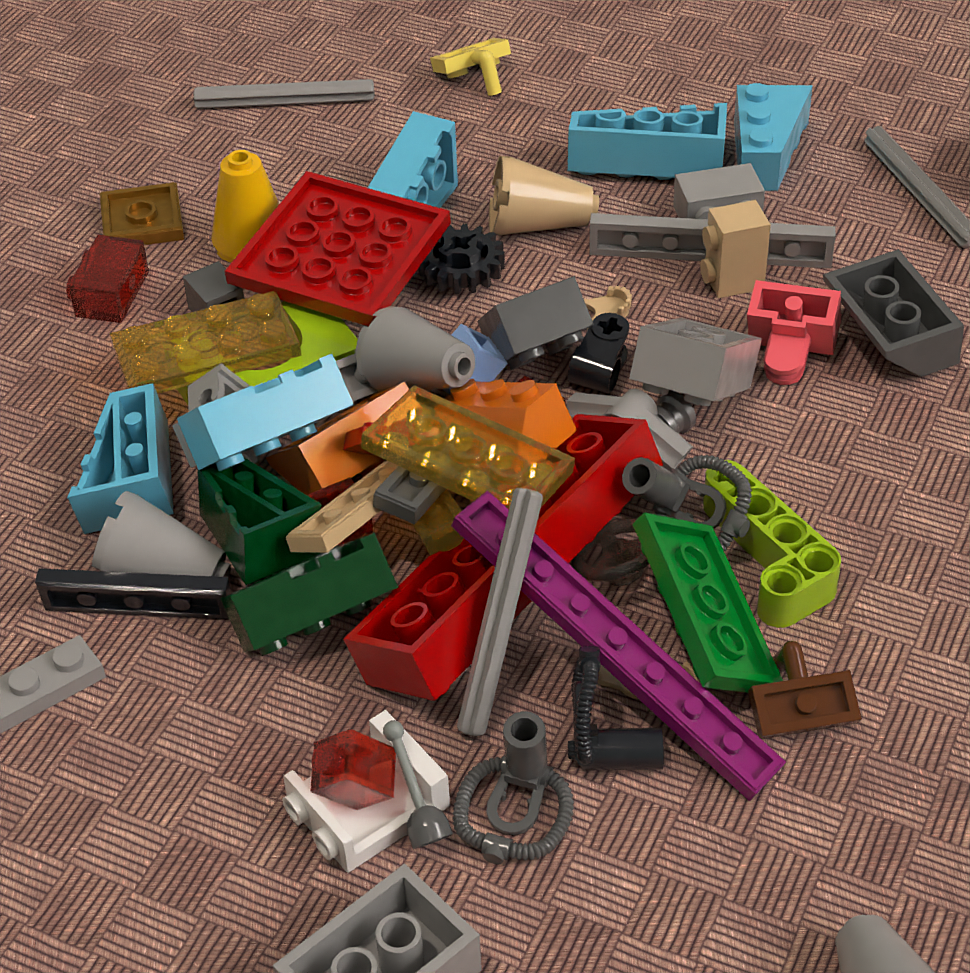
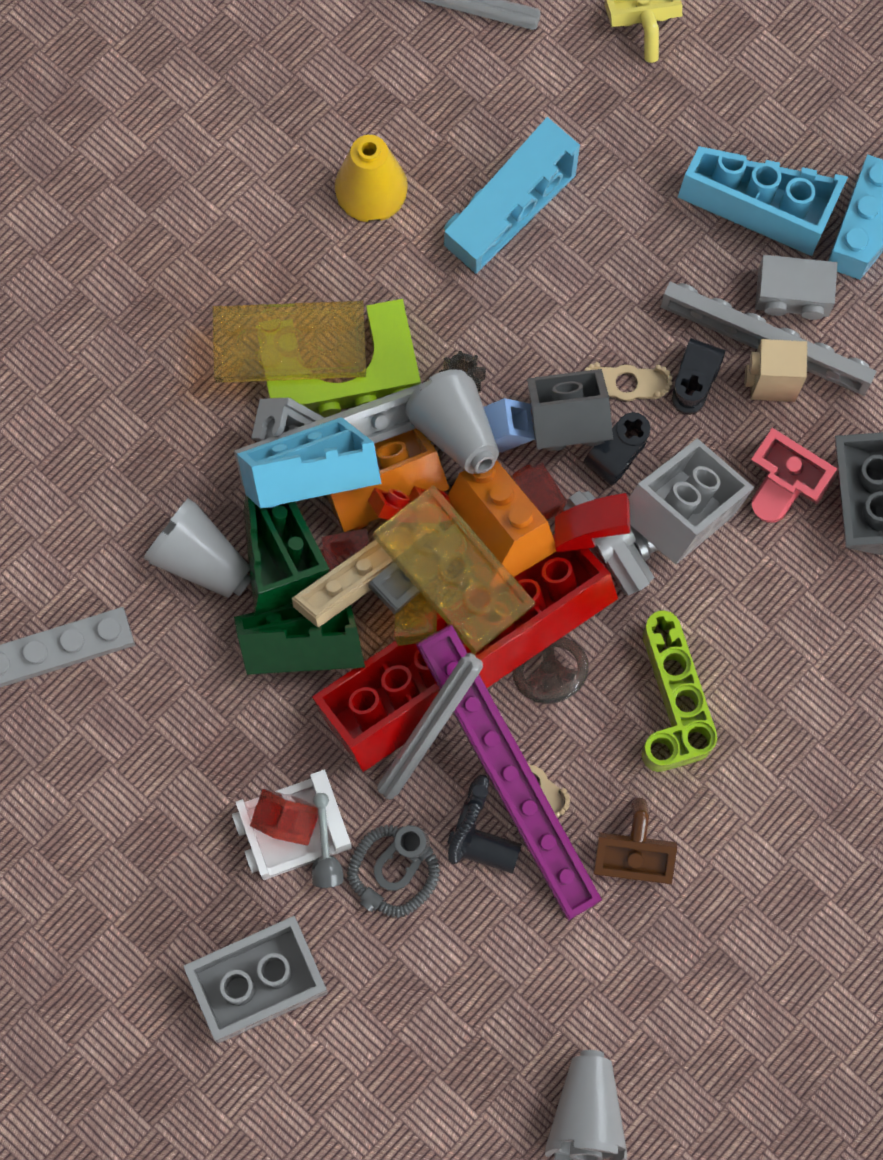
camera: 15 degrees right, 30 degrees up
(108, 278) = (232, 210): clear red brick -> none
(127, 456) = (199, 446): medium azure wedge -> none
(133, 593) = (171, 582): black tile -> none
(143, 213) = (281, 128): pearl gold tile -> none
(209, 288) = (317, 265): dark grey brick -> none
(338, 248) = (432, 265): red plate -> none
(464, 260) = (548, 273): black gear -> none
(537, 199) = (631, 240): tan cone -> none
(592, 392) = (593, 519): none -> red slope
(653, 286) = (696, 372): none -> black piece
(668, 489) = (609, 626): dark grey piece -> none
(706, 603) = (595, 753): green plate -> none

